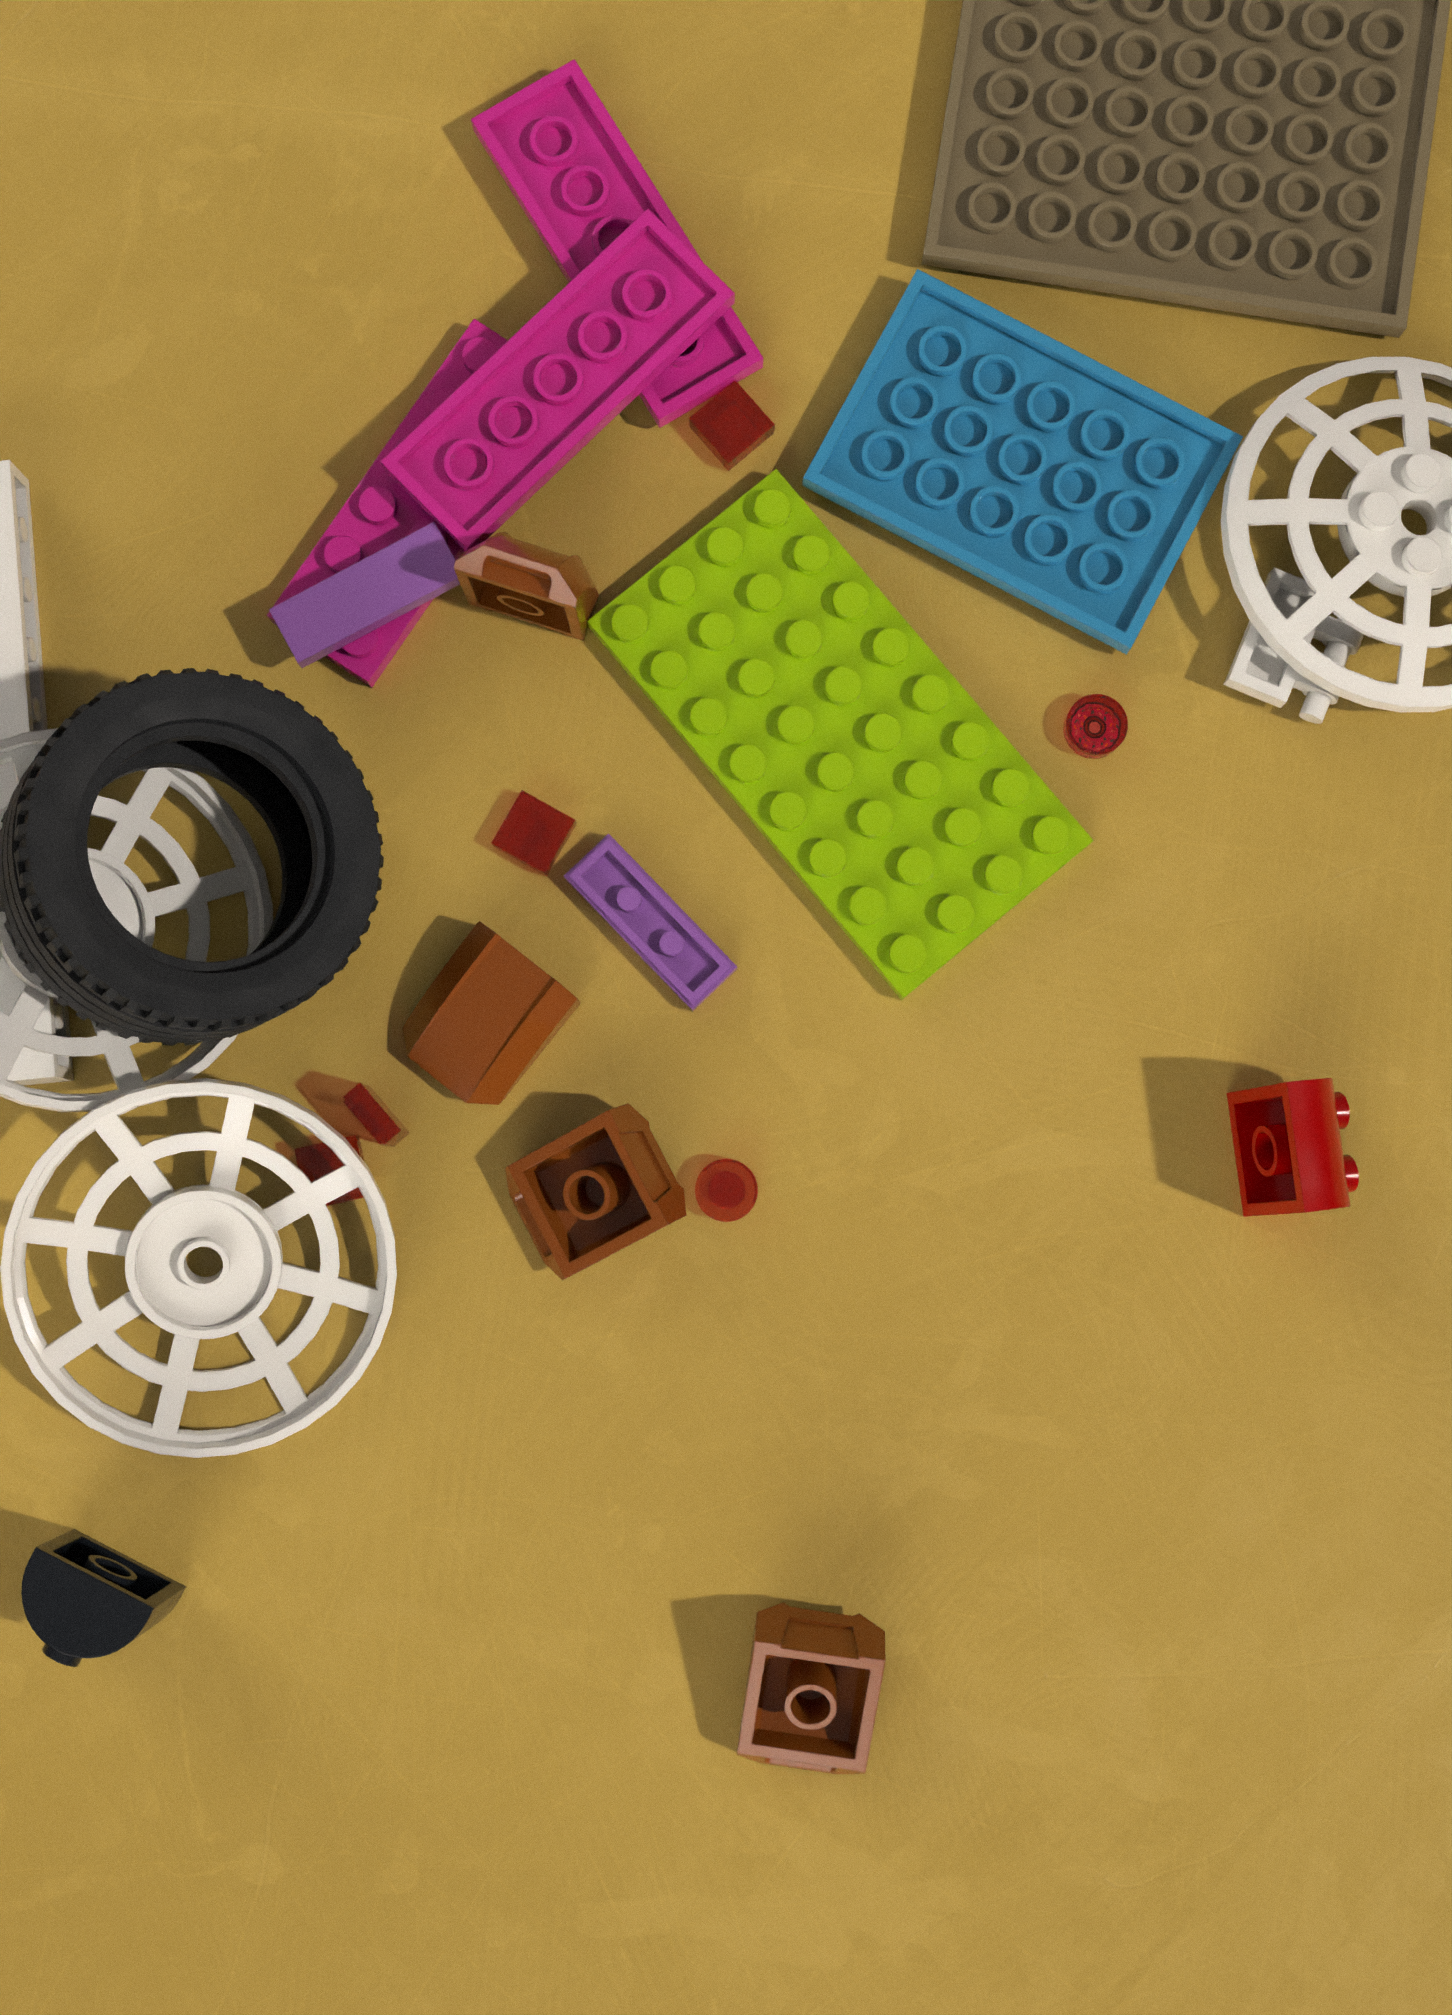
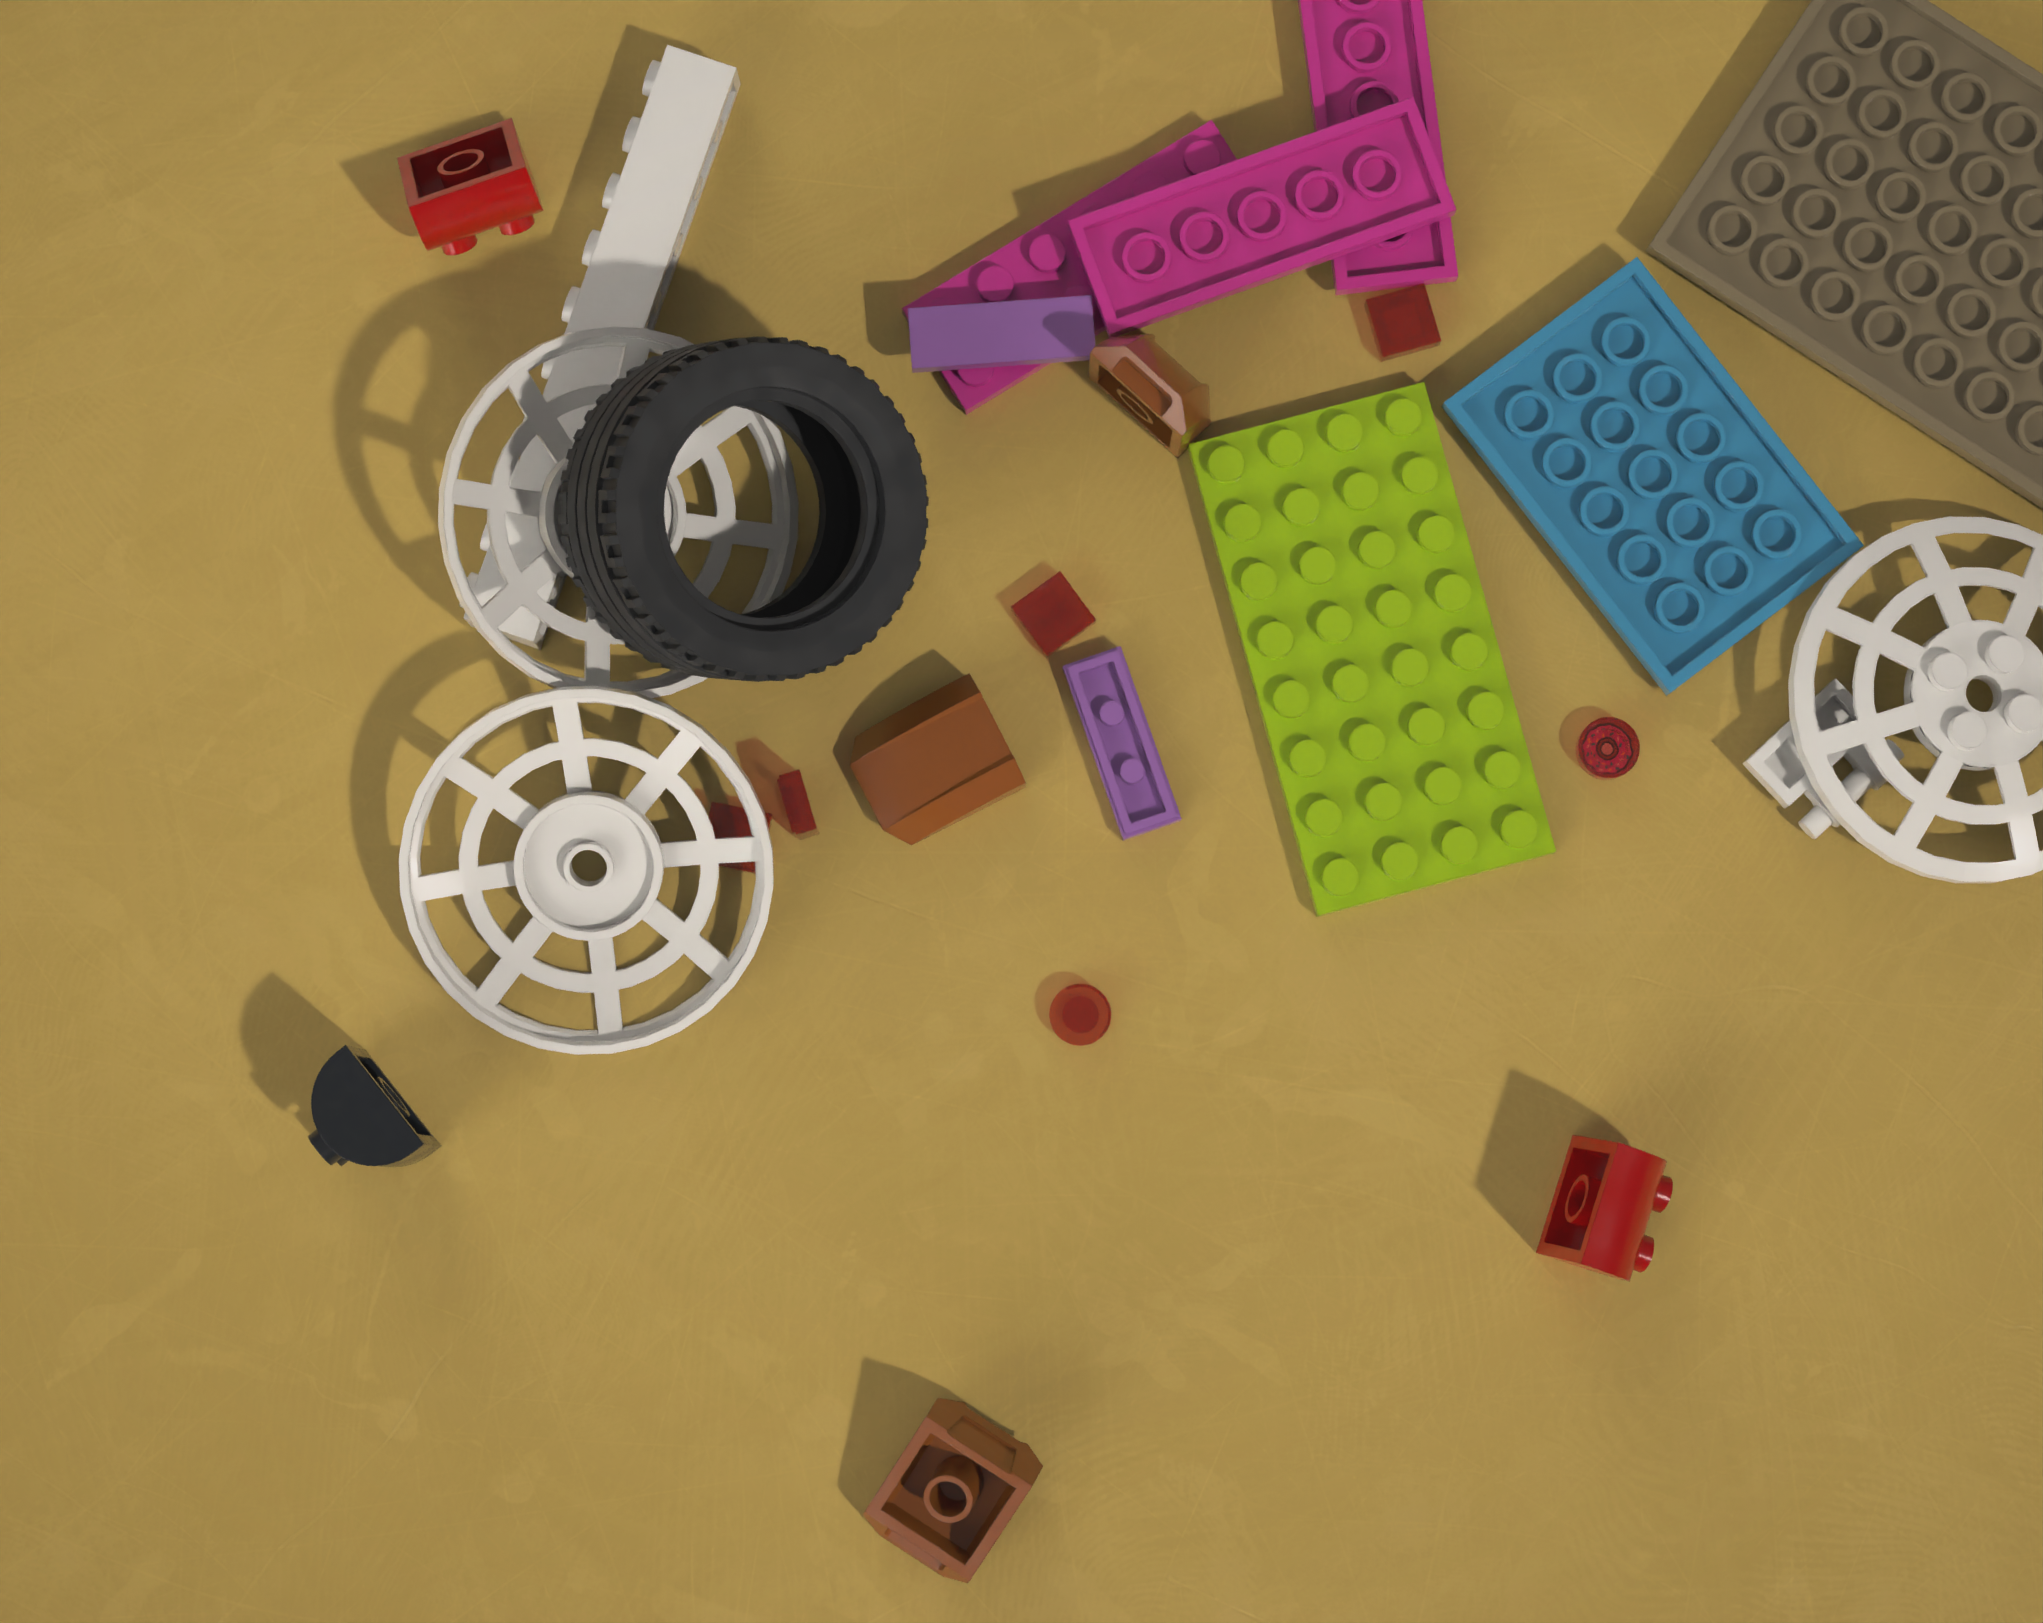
camera: 25 degrees right, 0 degrees up
(595, 1191) = (962, 961): dark orange slope -> none

